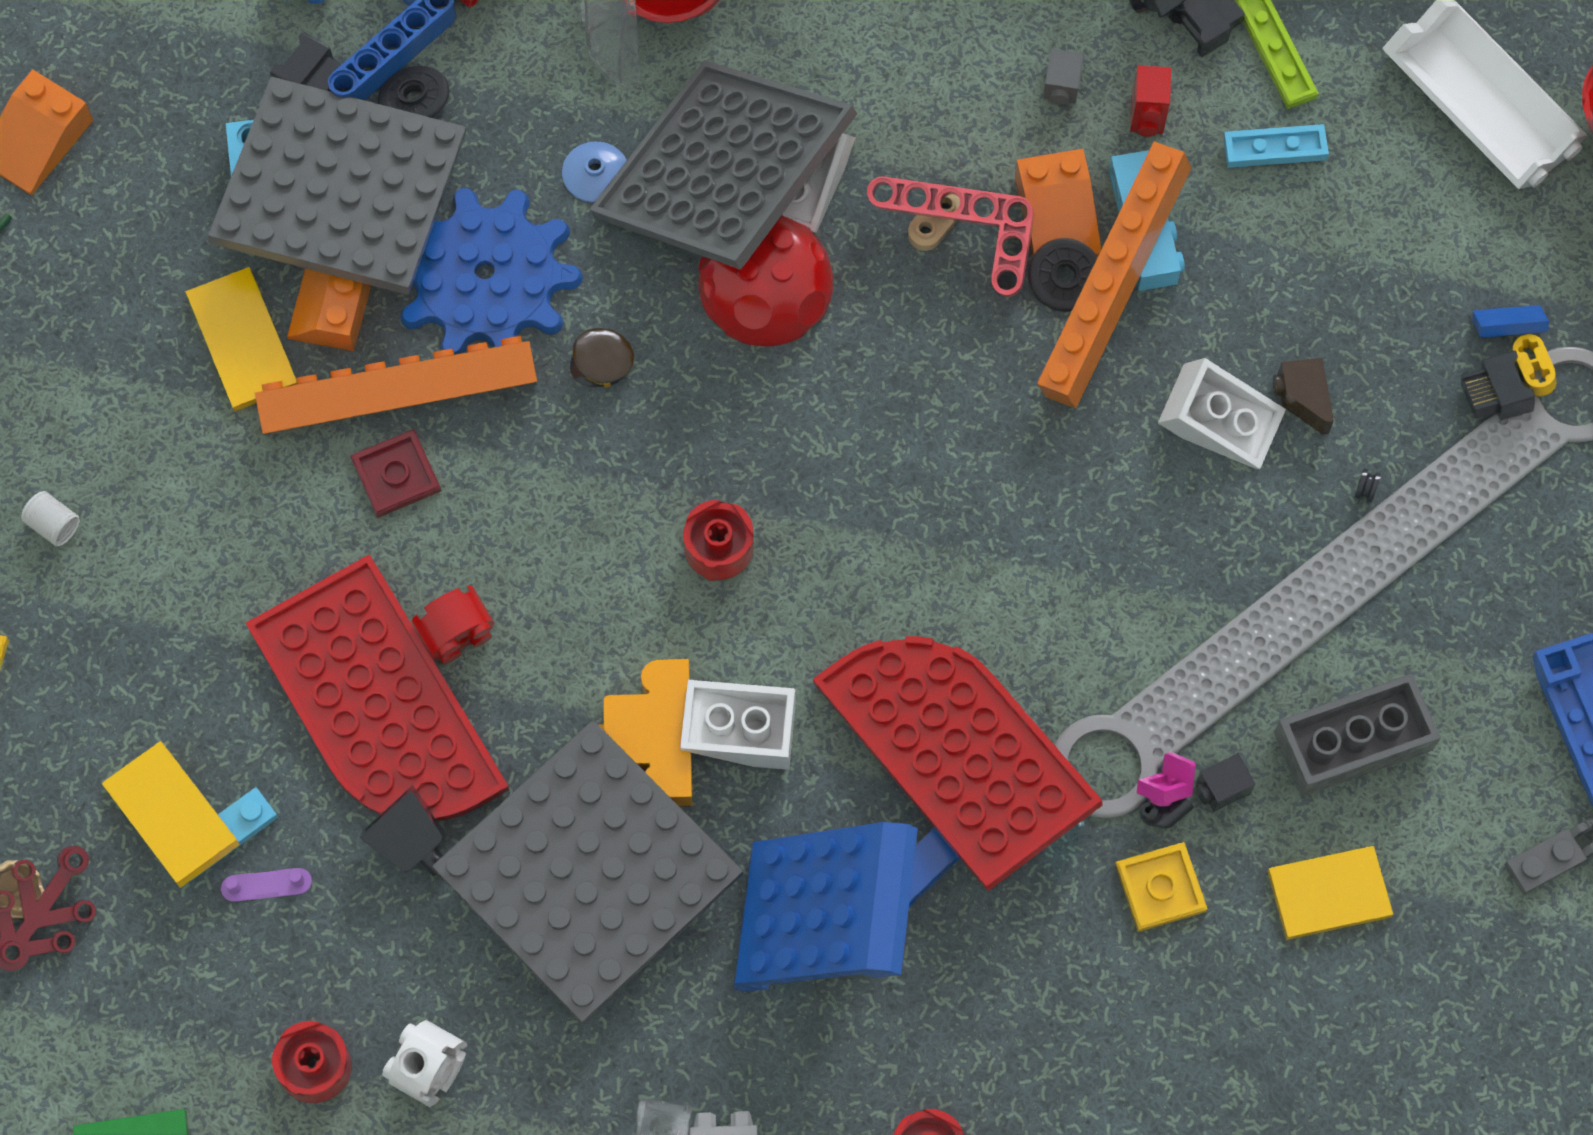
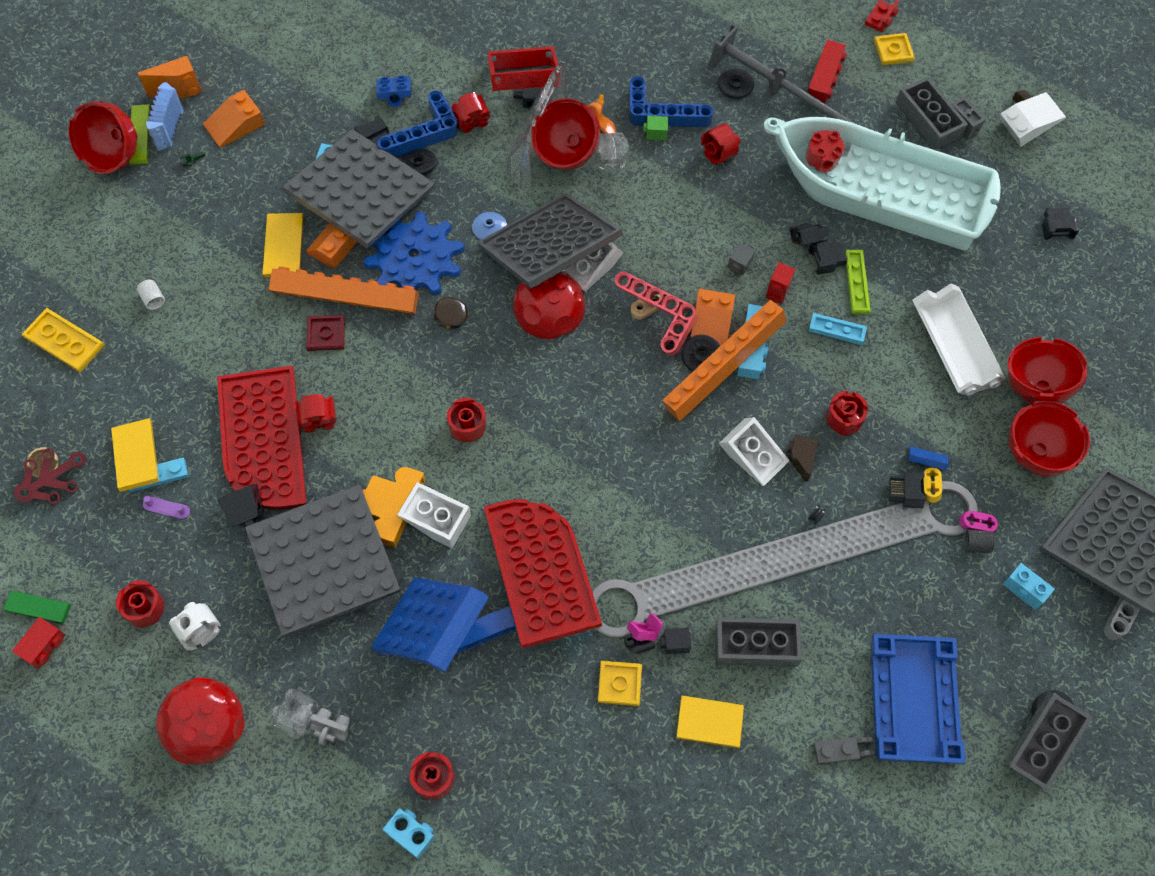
camera: 20 degrees right, 5 degrees down
(1349, 292) = (846, 413): none -> red brick

